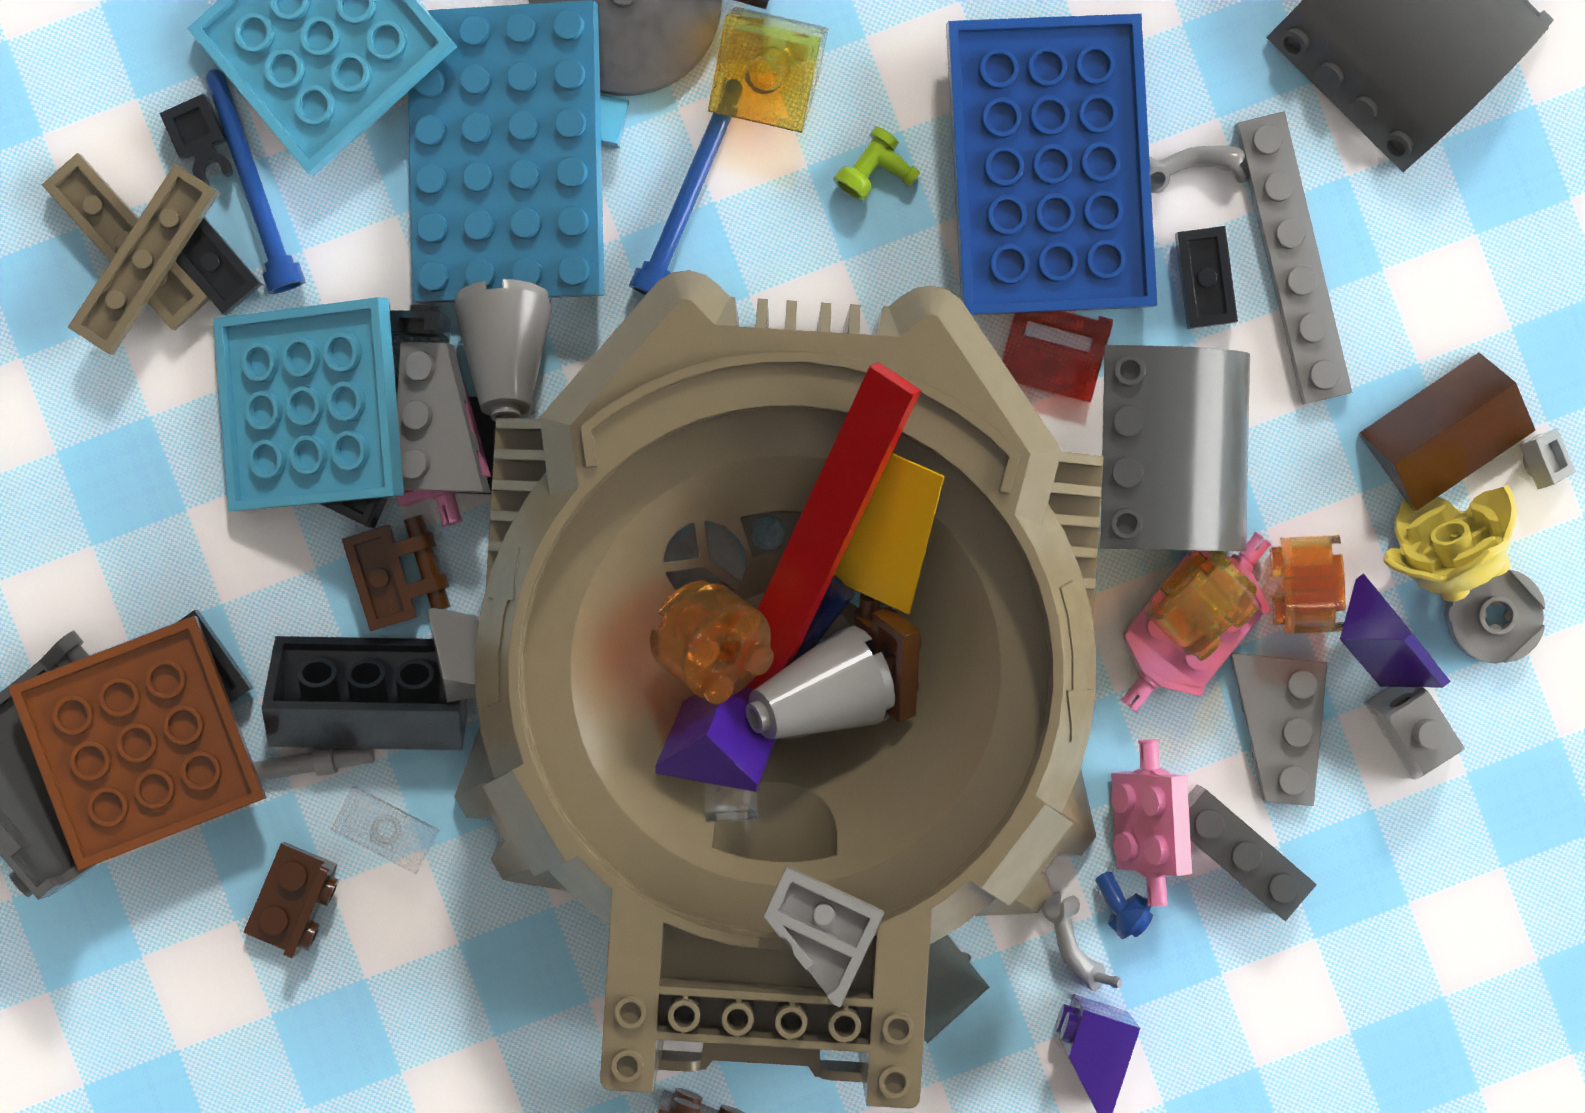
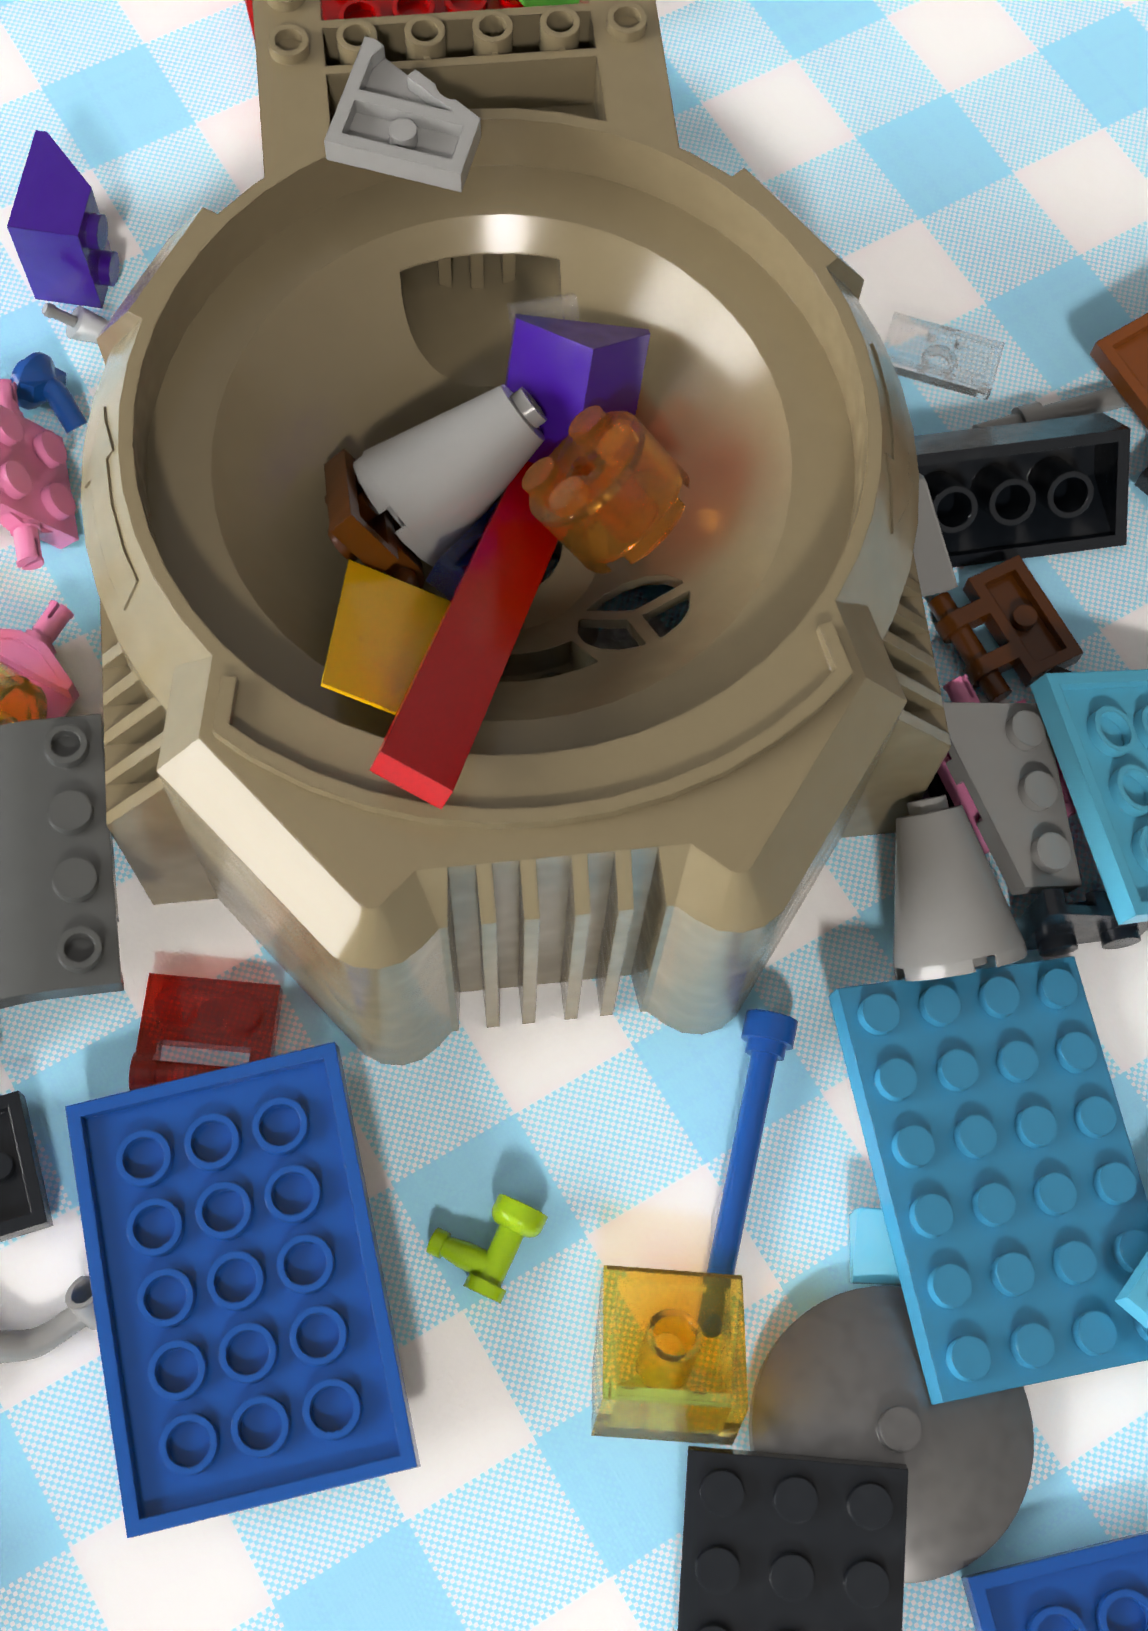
camera: 165 degrees right, 20 degrees down
(291, 899) = (1026, 276): reddish brown bracket -> none

